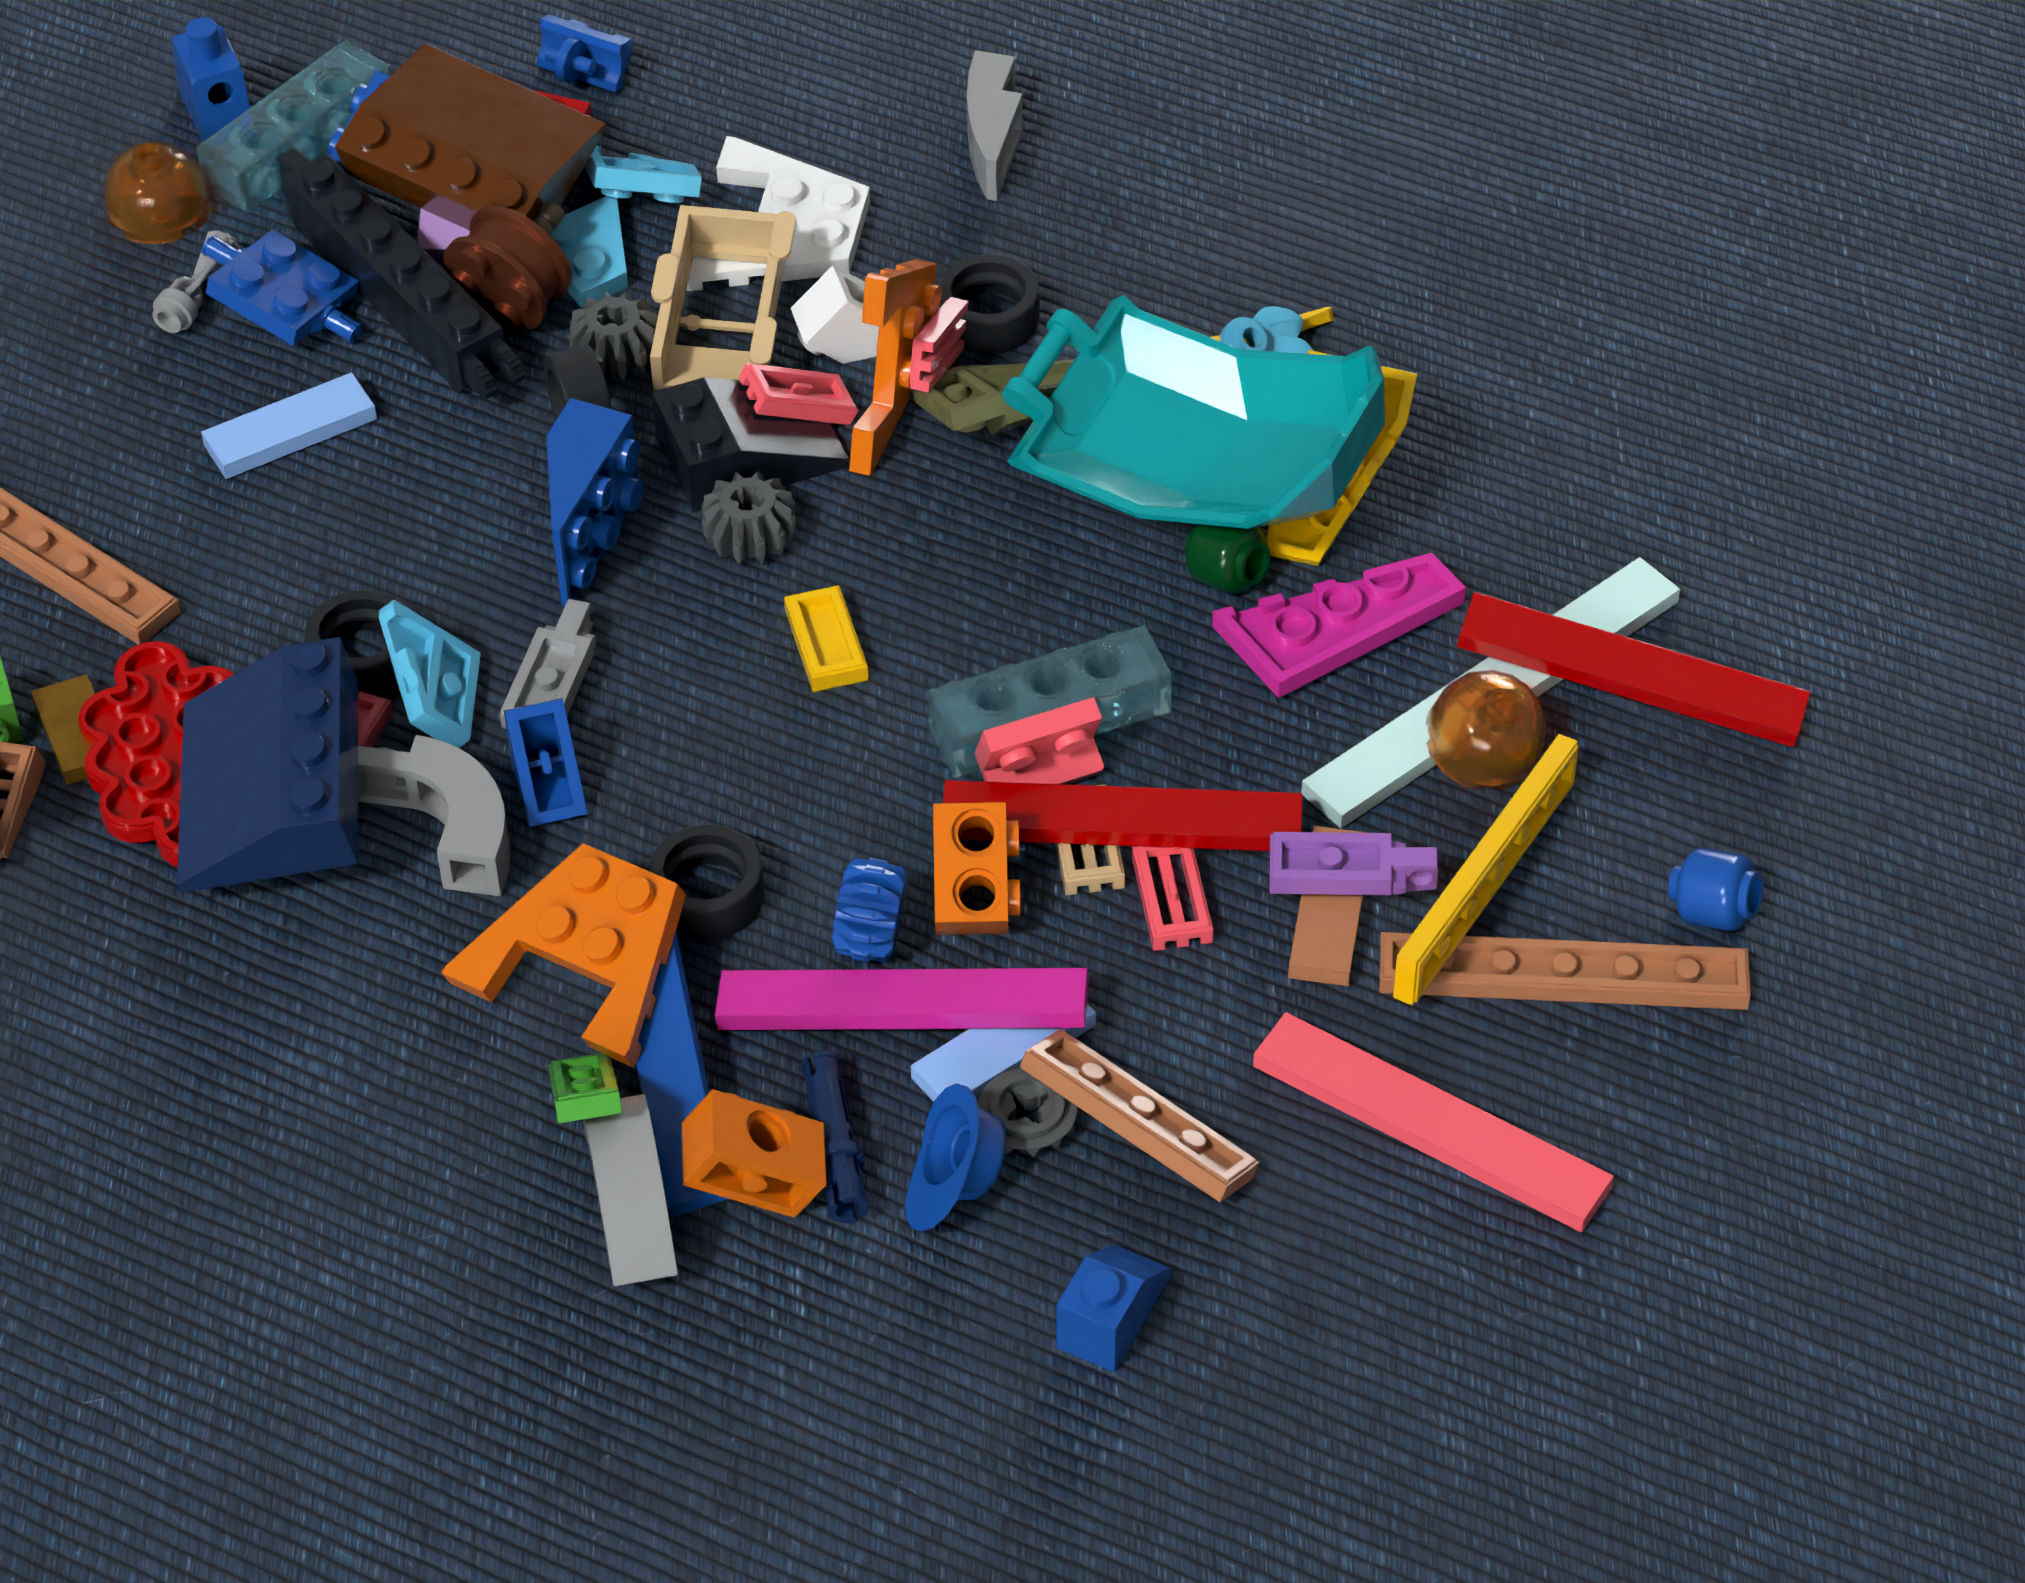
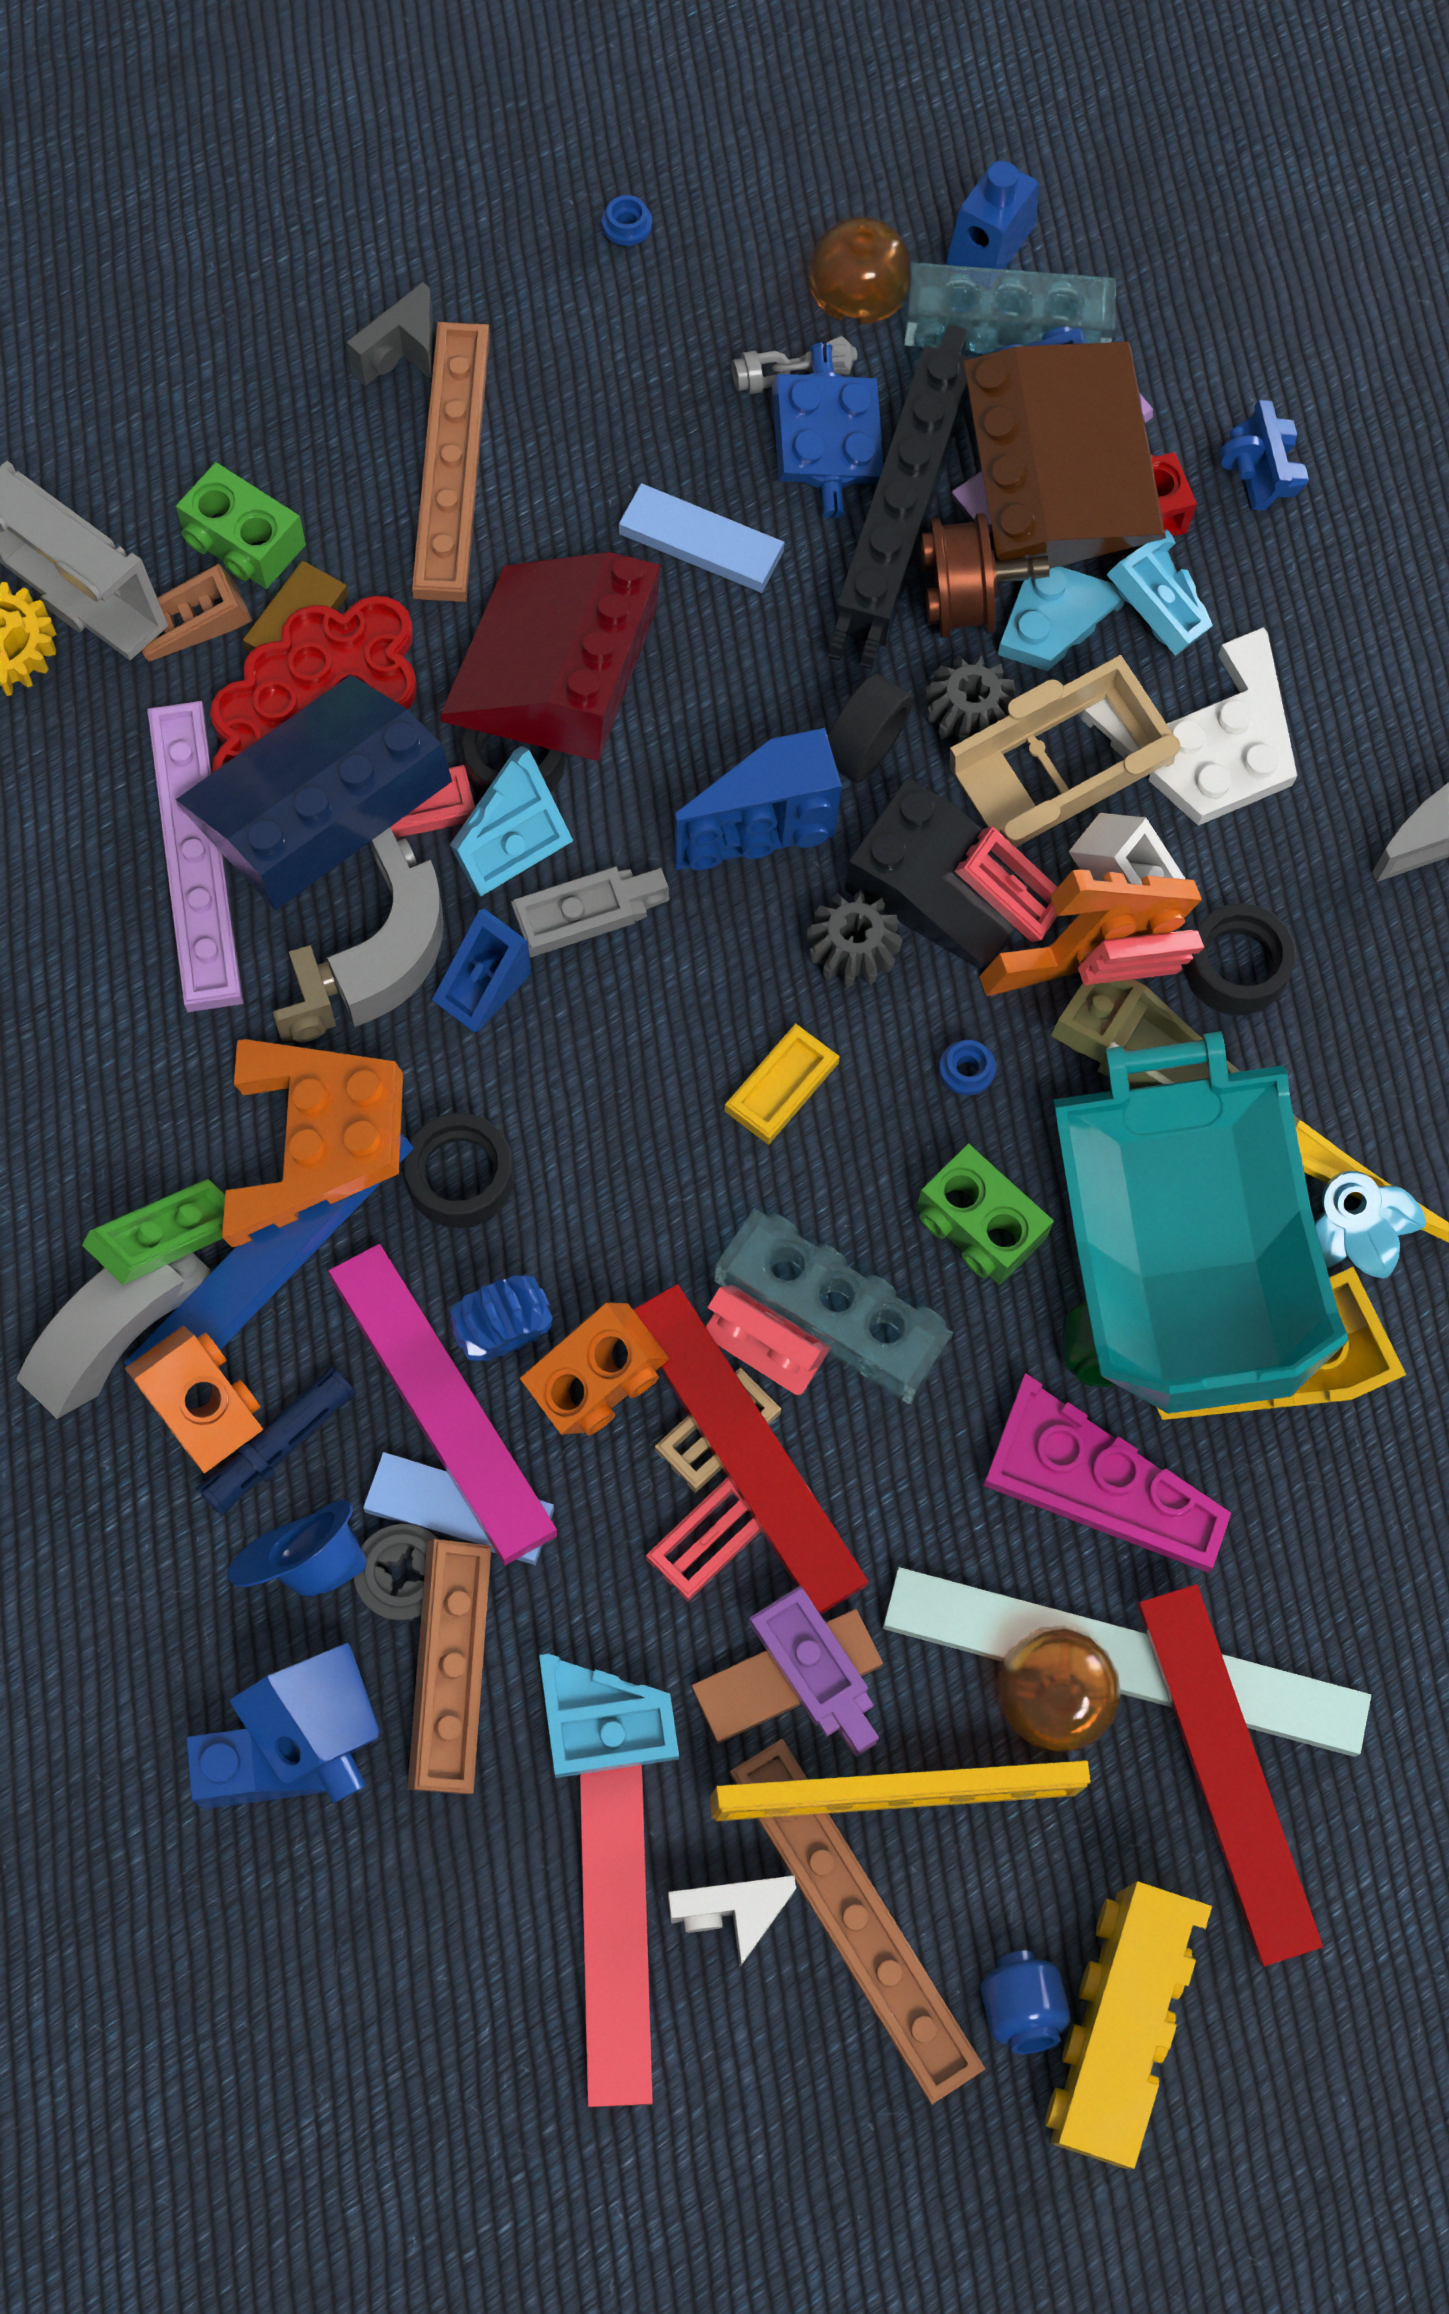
camera: 50 degrees right, 20 degrees up
(233, 920) = (193, 862): none -> lavender tile
(308, 550) = (556, 651): none -> dark red slope
(451, 894) = (314, 1015): none -> dark tan bracket
(922, 512) = (967, 1052): none -> blue plate
(1058, 566) = (995, 1206): none -> bright green brick
(1089, 1215) = (312, 1720): none -> torso
(1273, 1026) = (604, 1721): none -> medium azure wing
(1501, 1028) = (751, 1904): none -> white slope
(1754, 806) = (1124, 2023): none -> yellow wedge

